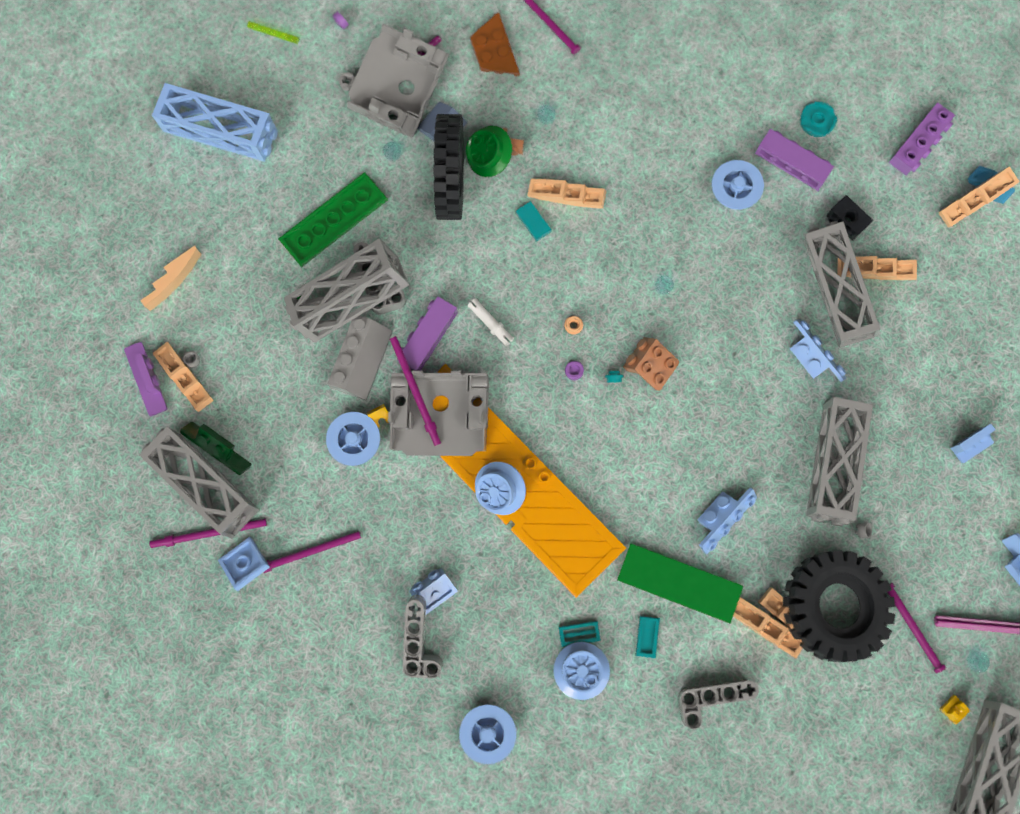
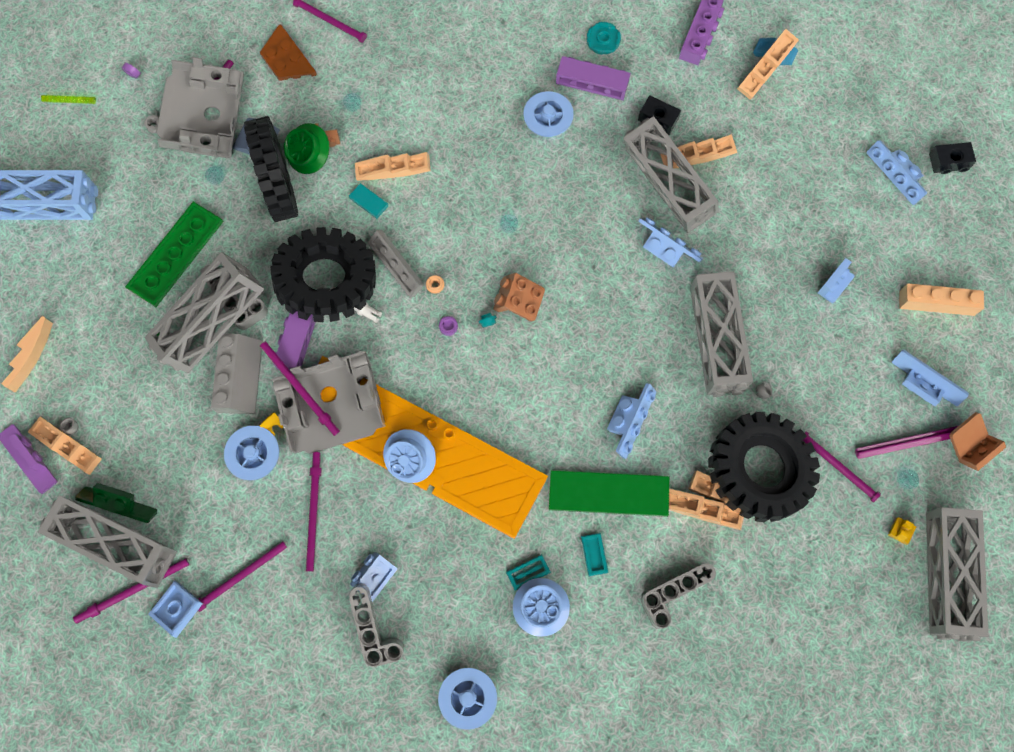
camera: 20 degrees left, 5 degrees down
(407, 474) = (315, 473): none -> magenta bar
(453, 256) = (297, 296): none -> black tyre
(541, 293) = (395, 263): none -> light grey plate

